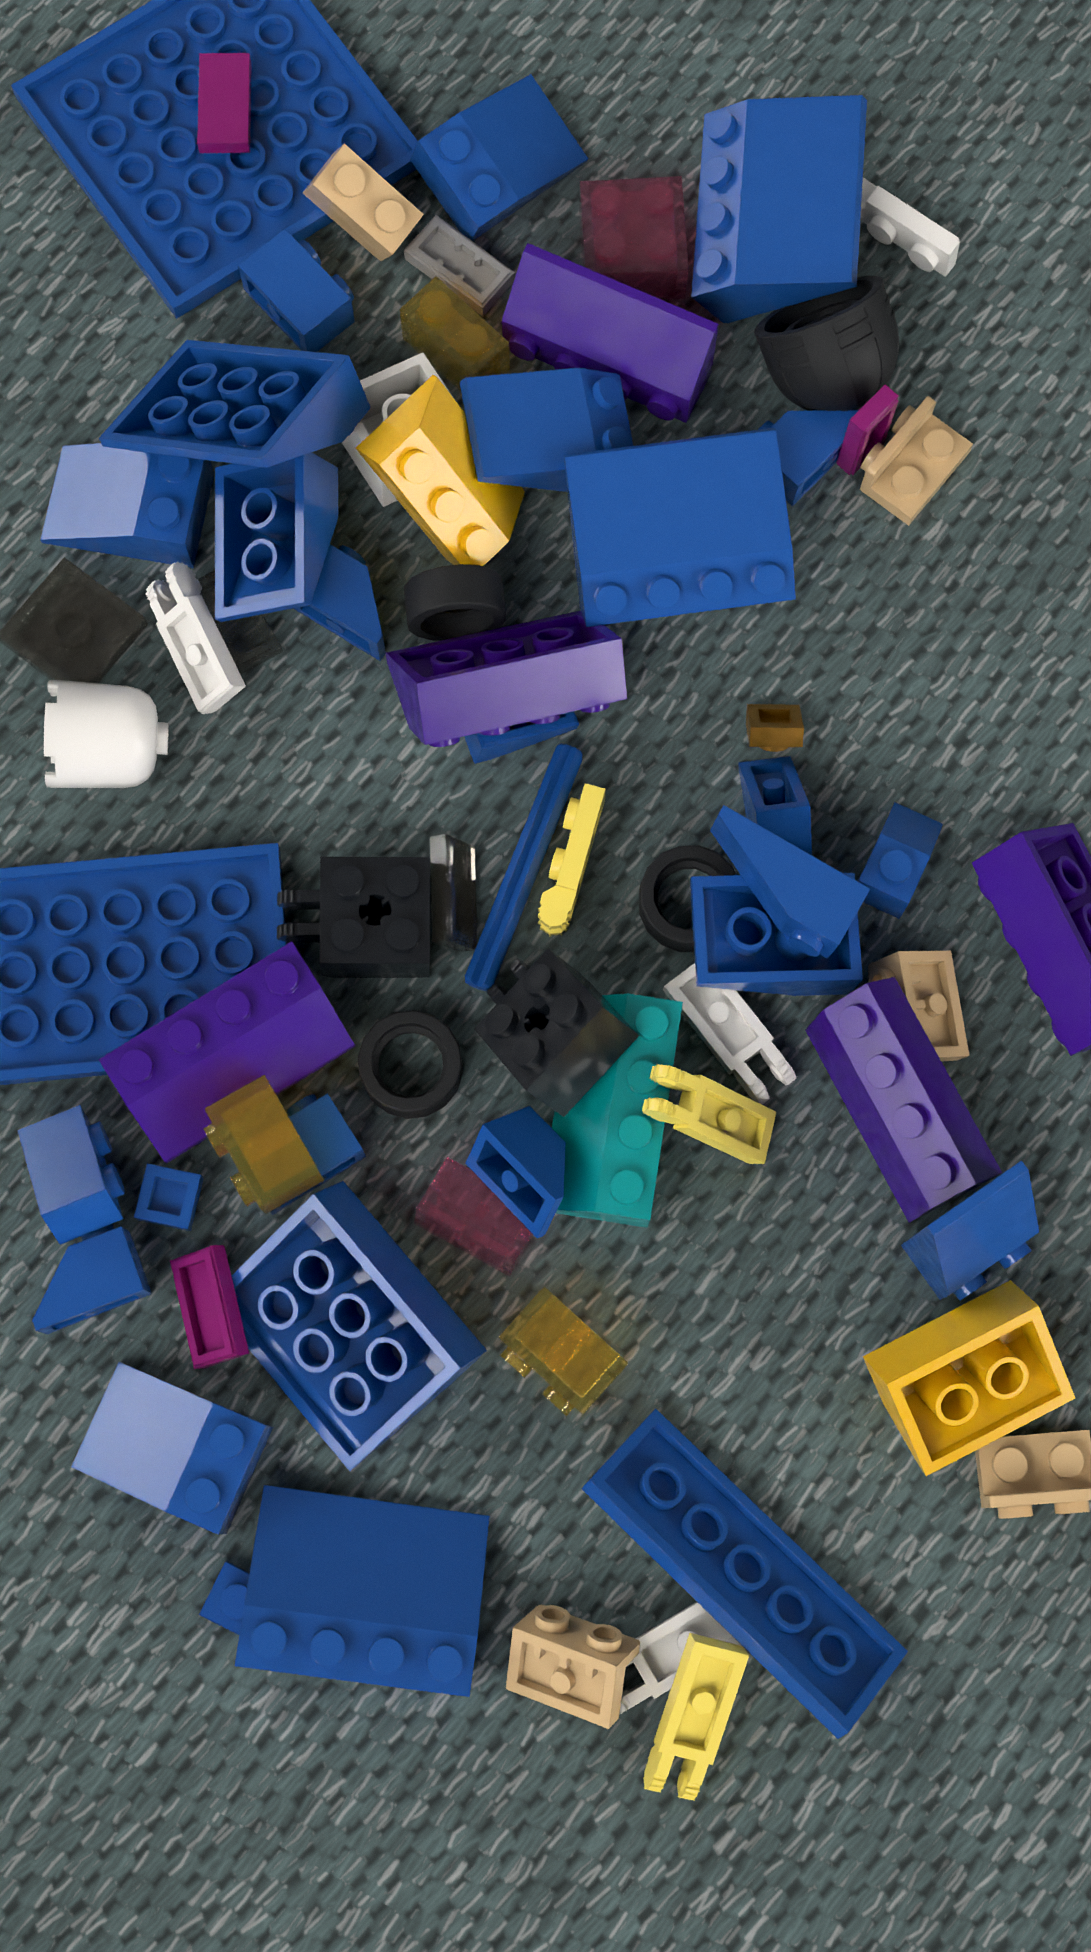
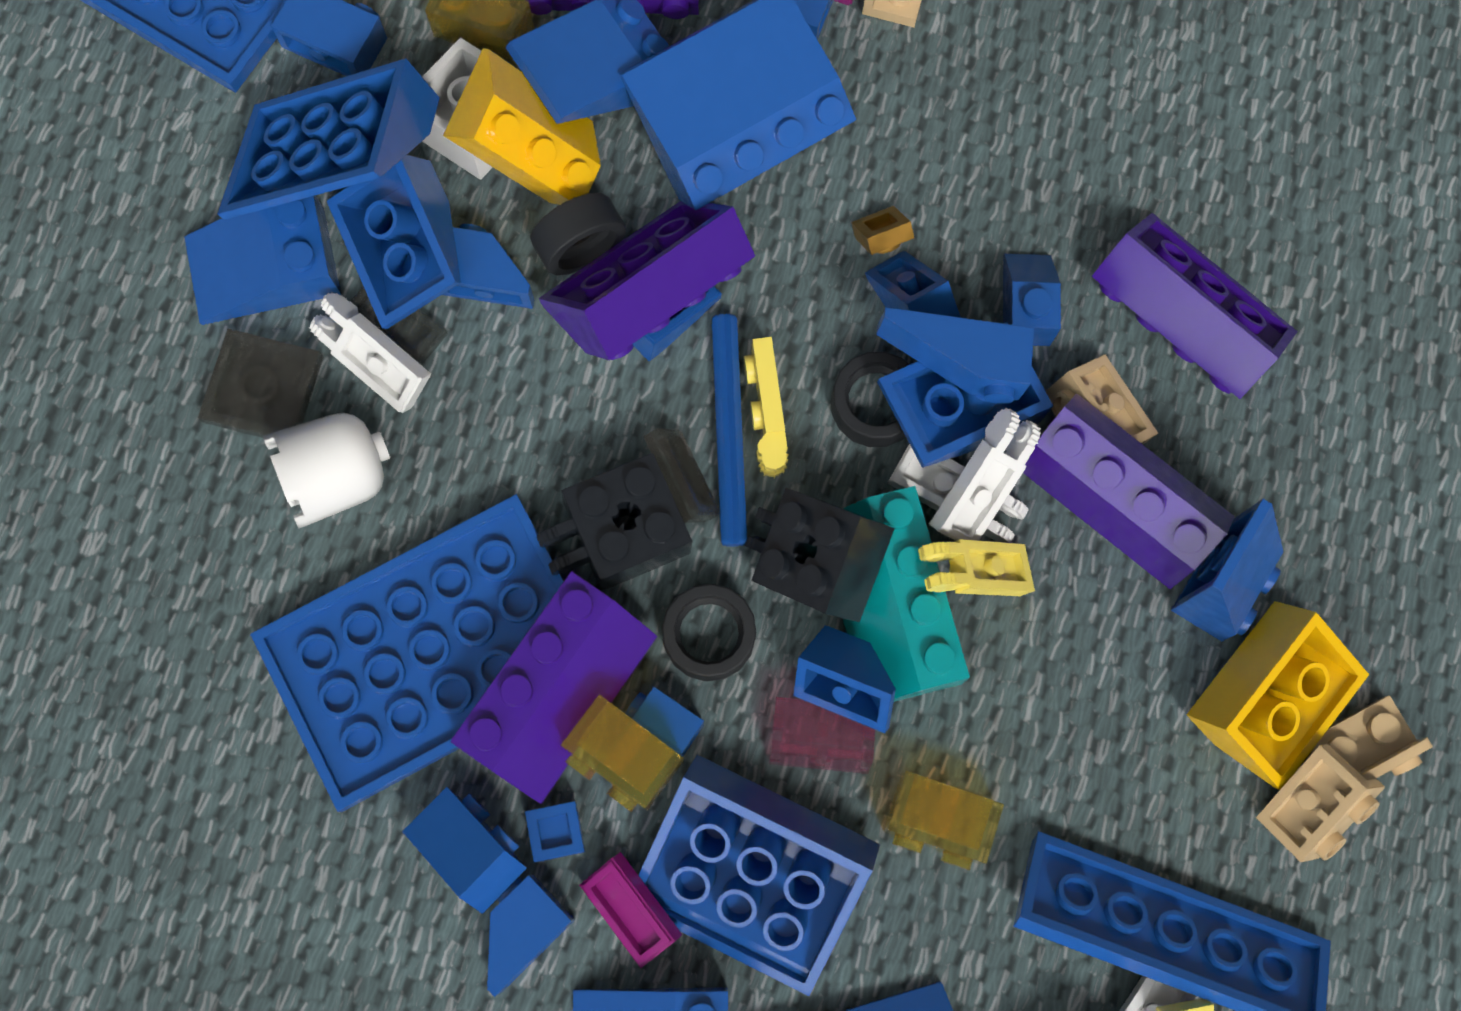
camera: 25 degrees left, 0 degrees up
(758, 1025) = (987, 477): none -> white hinge
(957, 1508) = (1320, 805): none -> tan bracket

